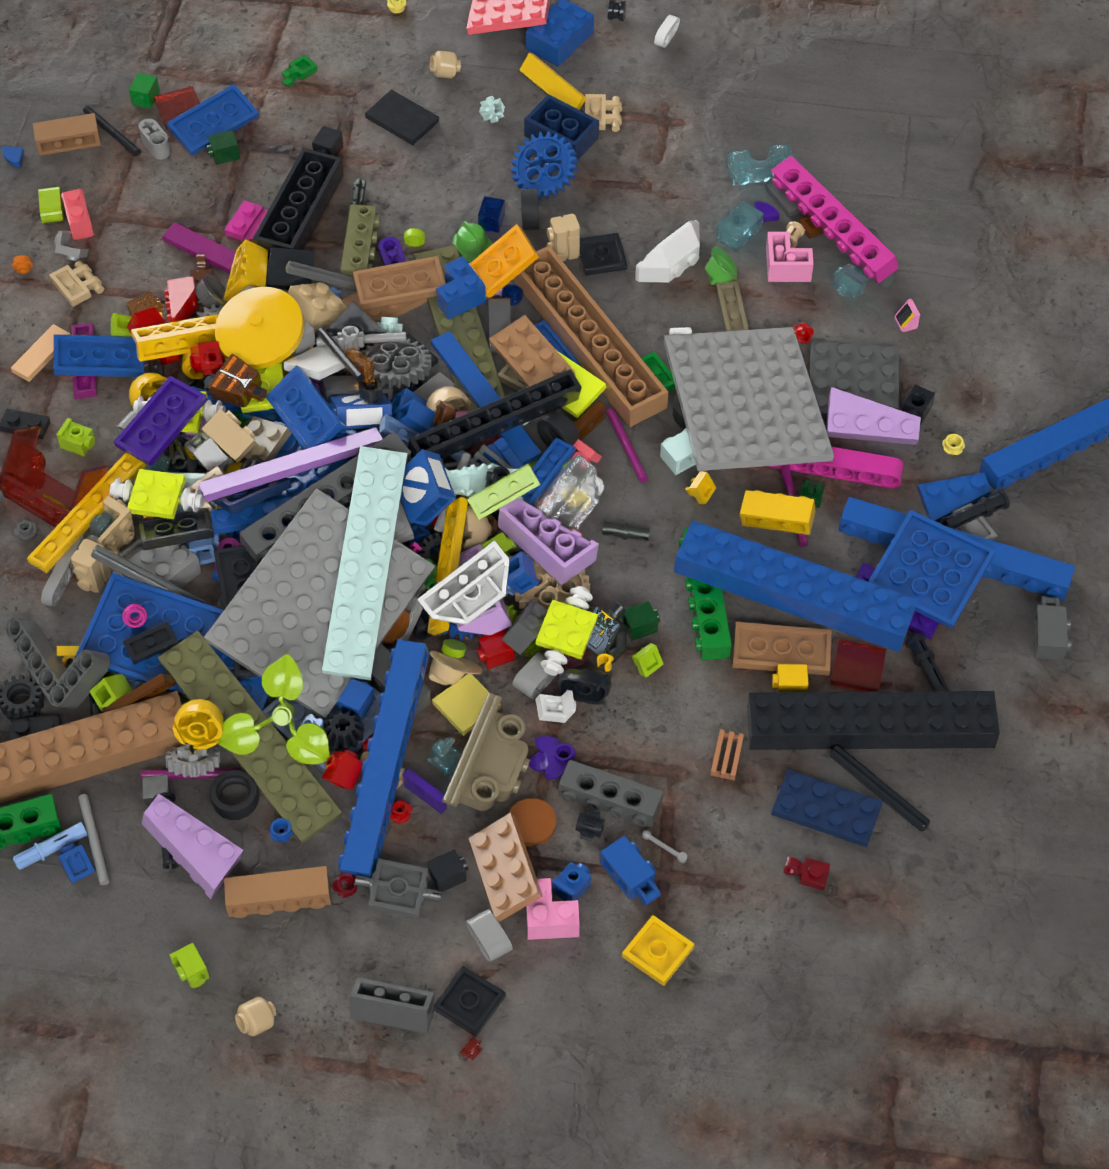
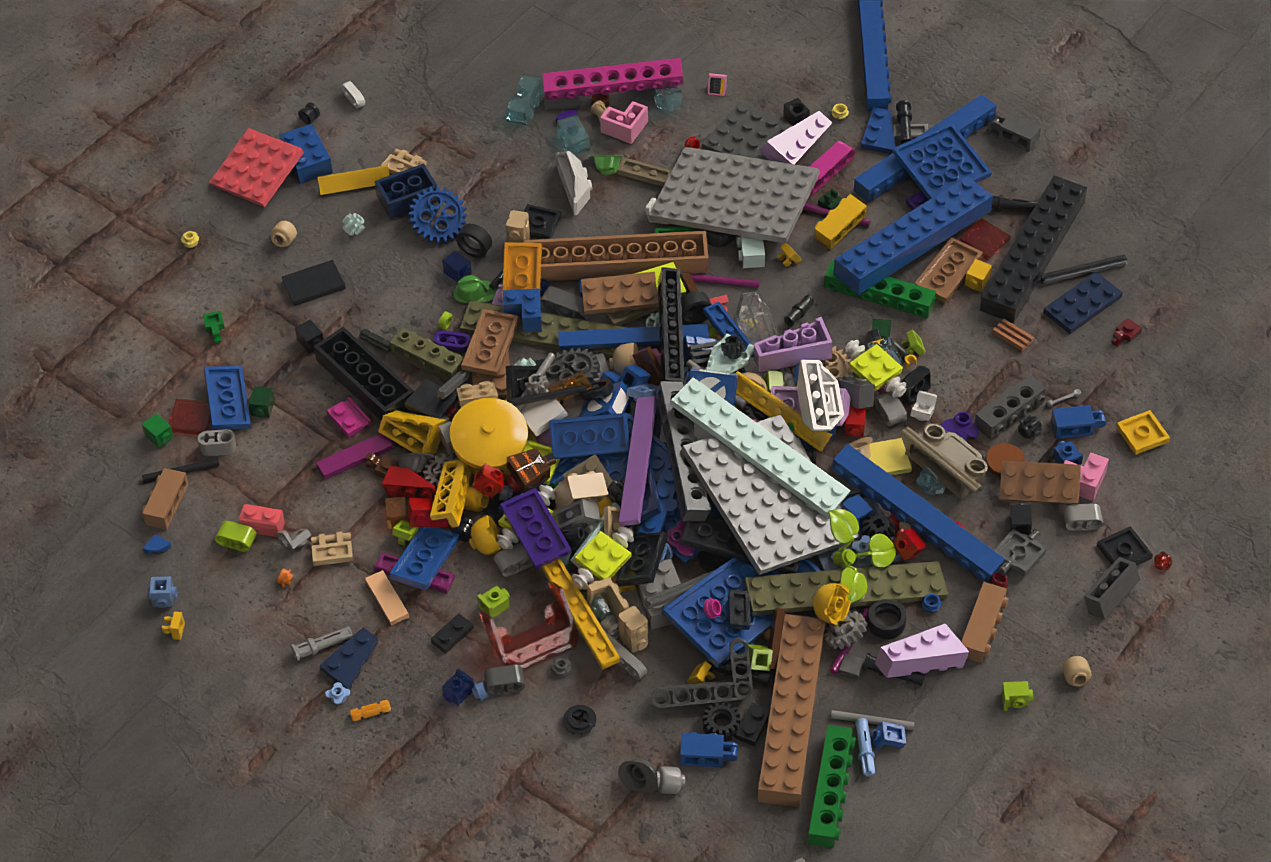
camera: 60 degrees left, 5 degrees down
(424, 790) = (953, 505): dark purple tile -> none
(453, 648) = (838, 444): lime tile -> none
(503, 491) = (748, 346): lime tile -> none

